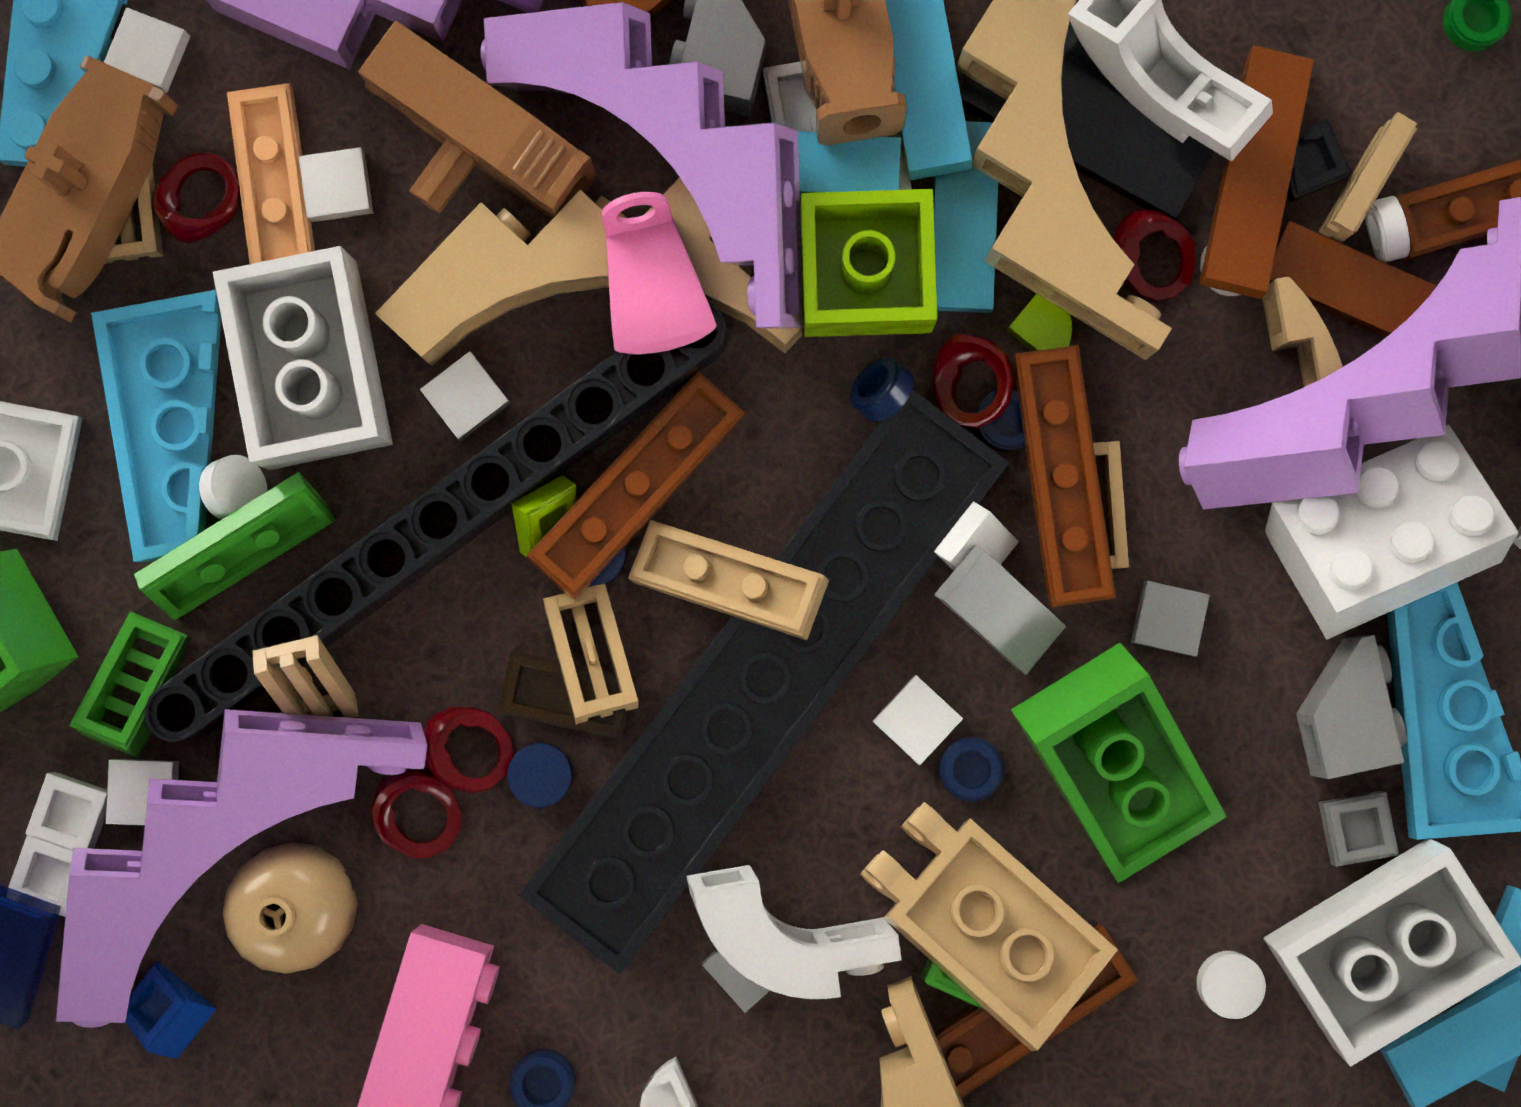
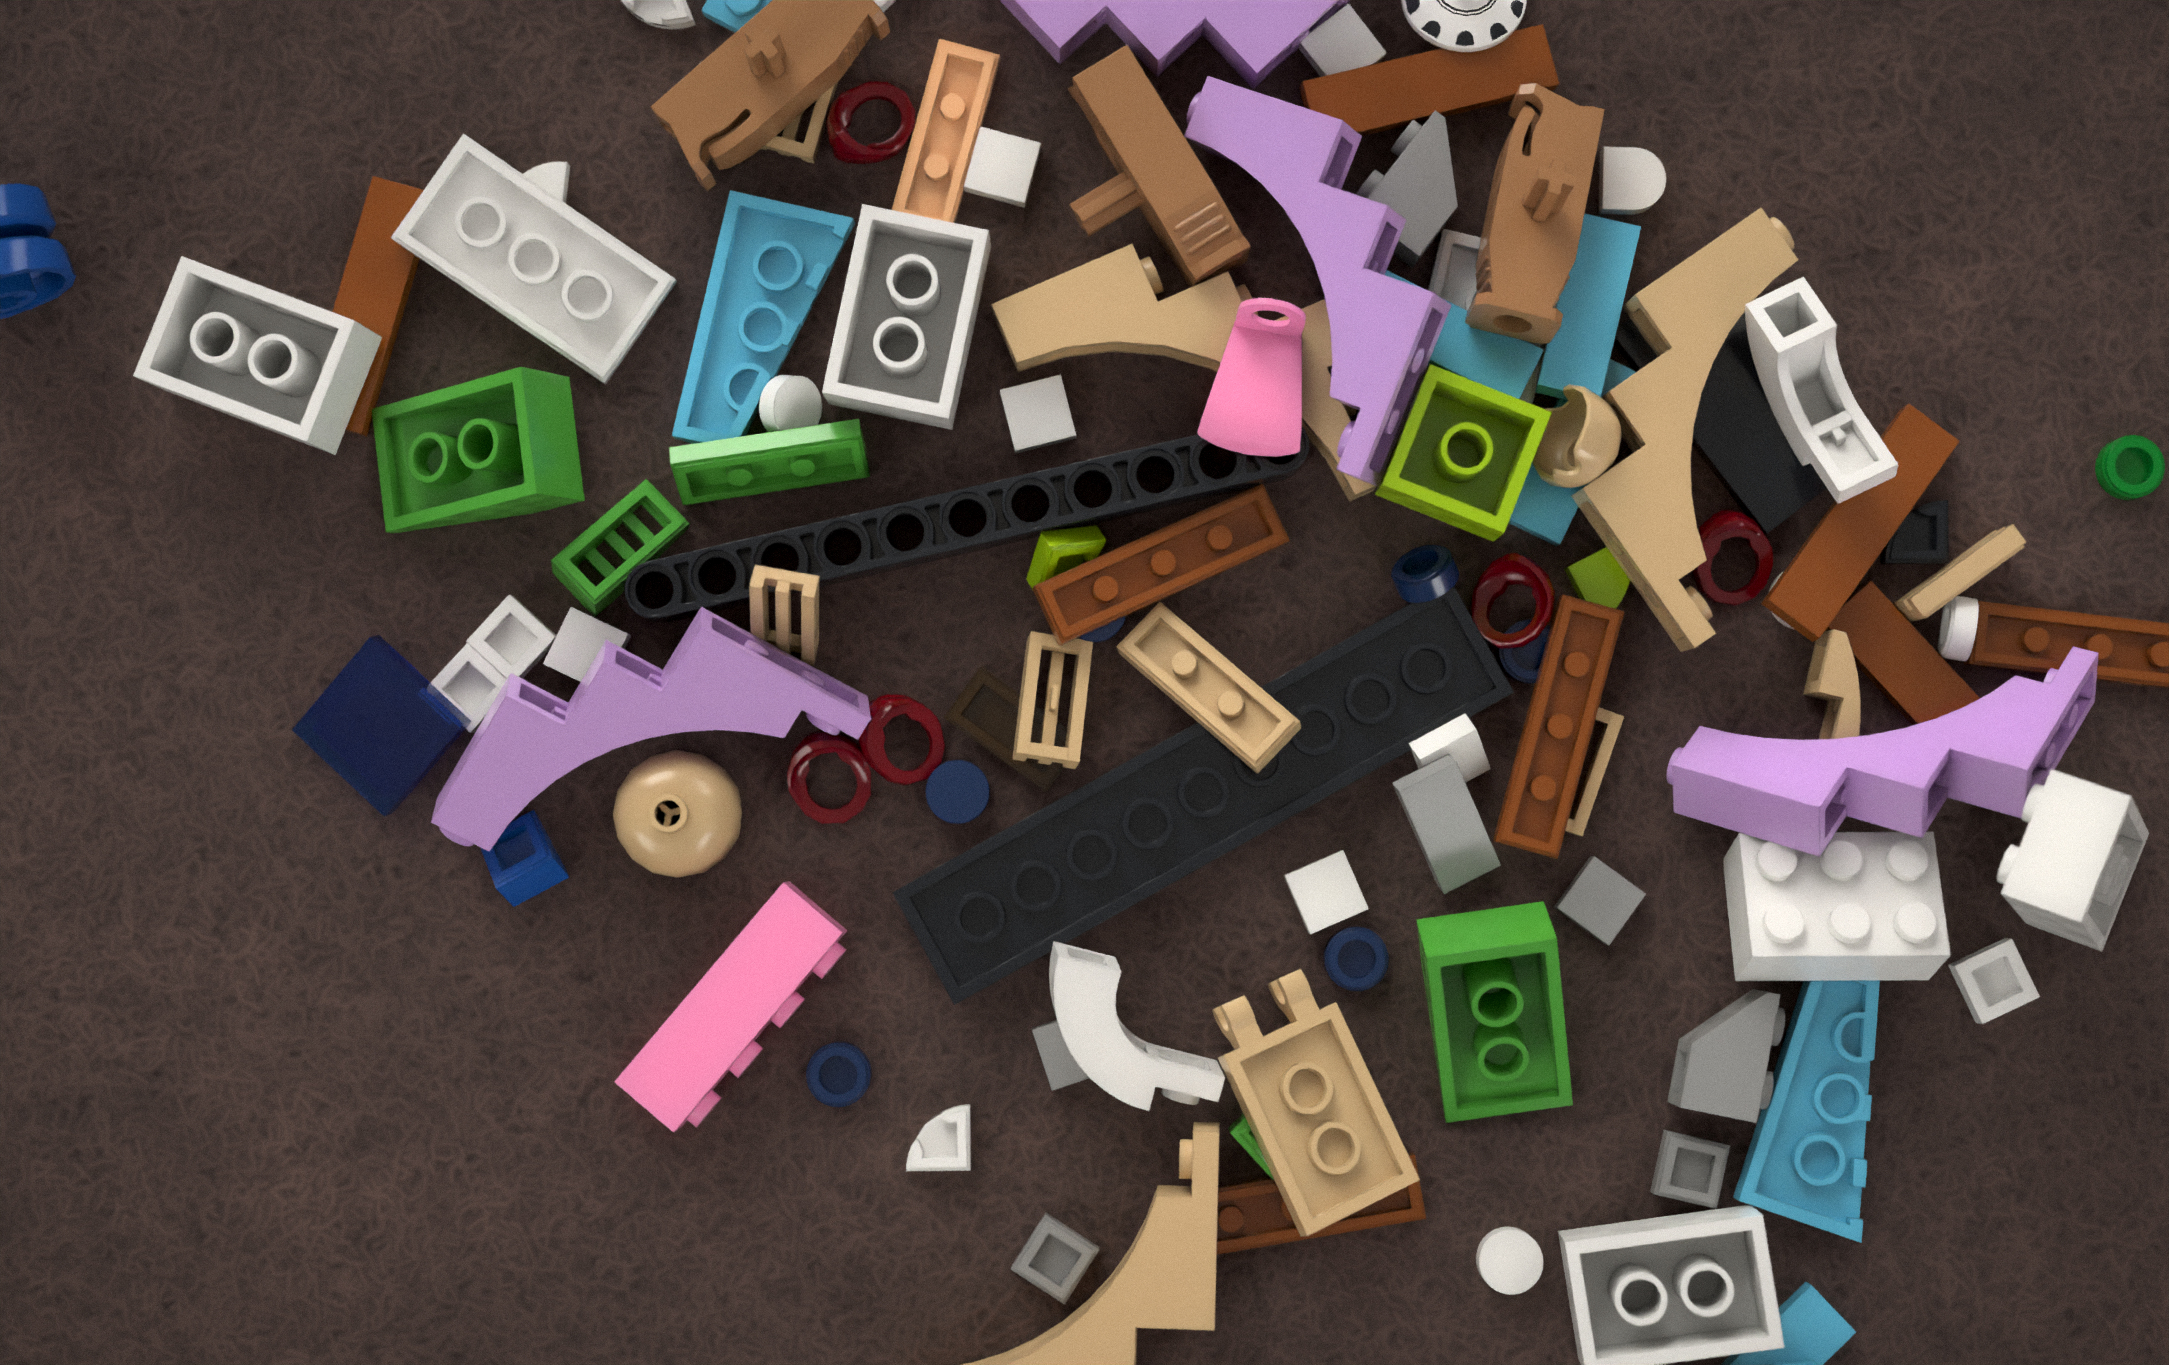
camera: 20 degrees right, 0 degrees up
(968, 205) = (1578, 440): none -> tan hair

